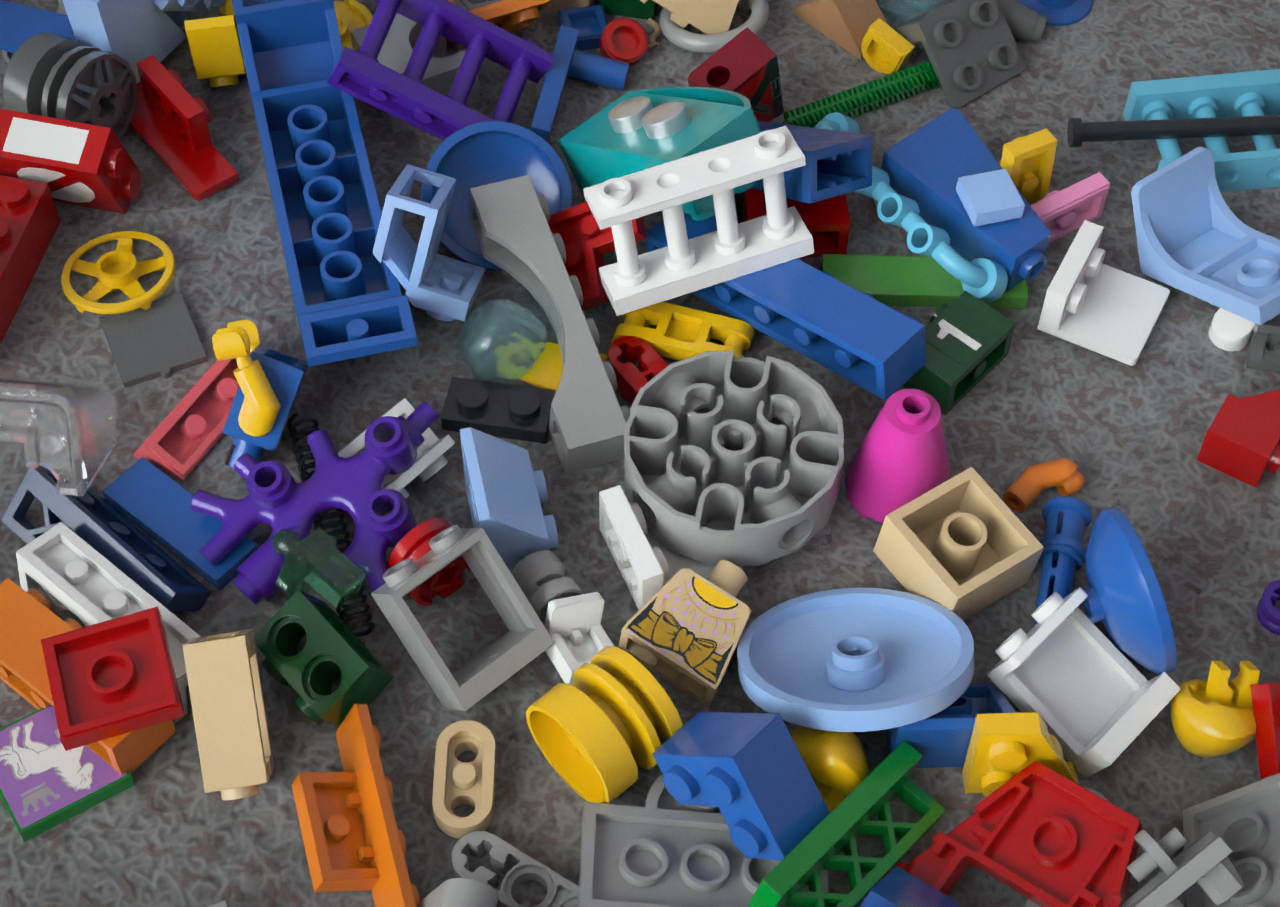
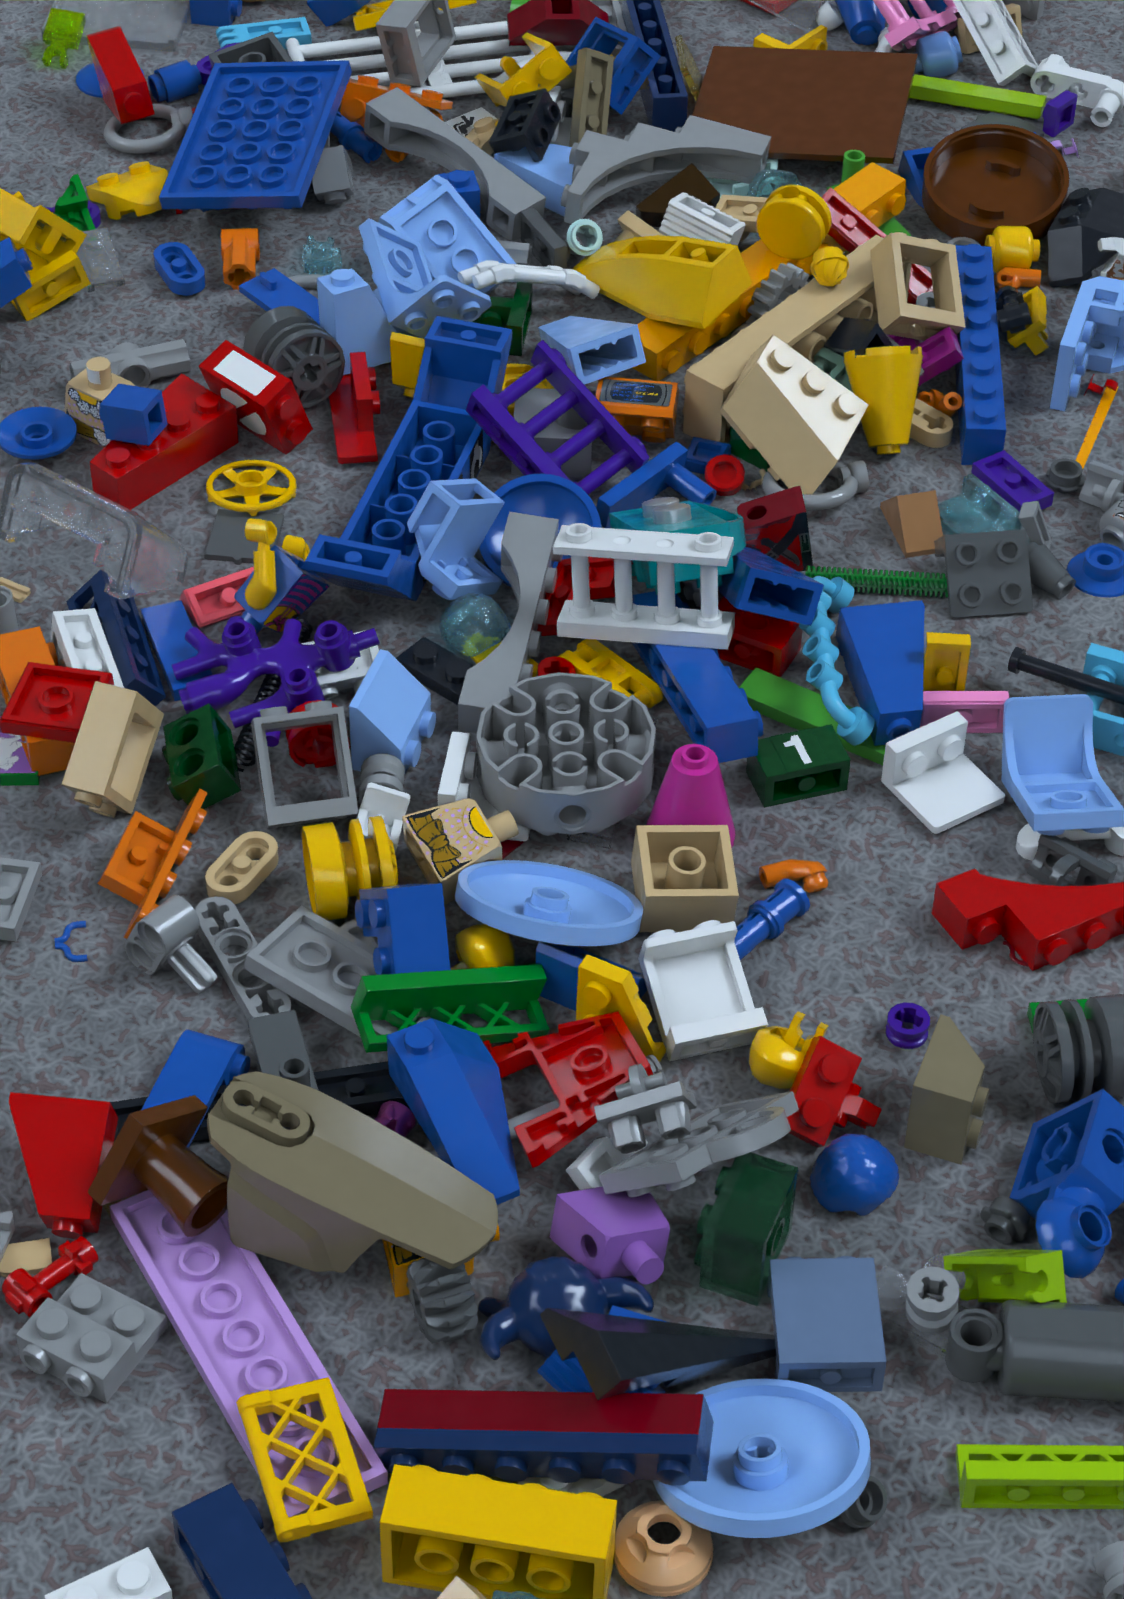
camera: 30 degrees right, 10 degrees down
(316, 565) = (233, 697): piece -> none
(885, 48) = (921, 551): yellow tile -> none
(990, 197) = (890, 665): light blue tile -> none
(1127, 593) = (772, 945): blue dish -> none

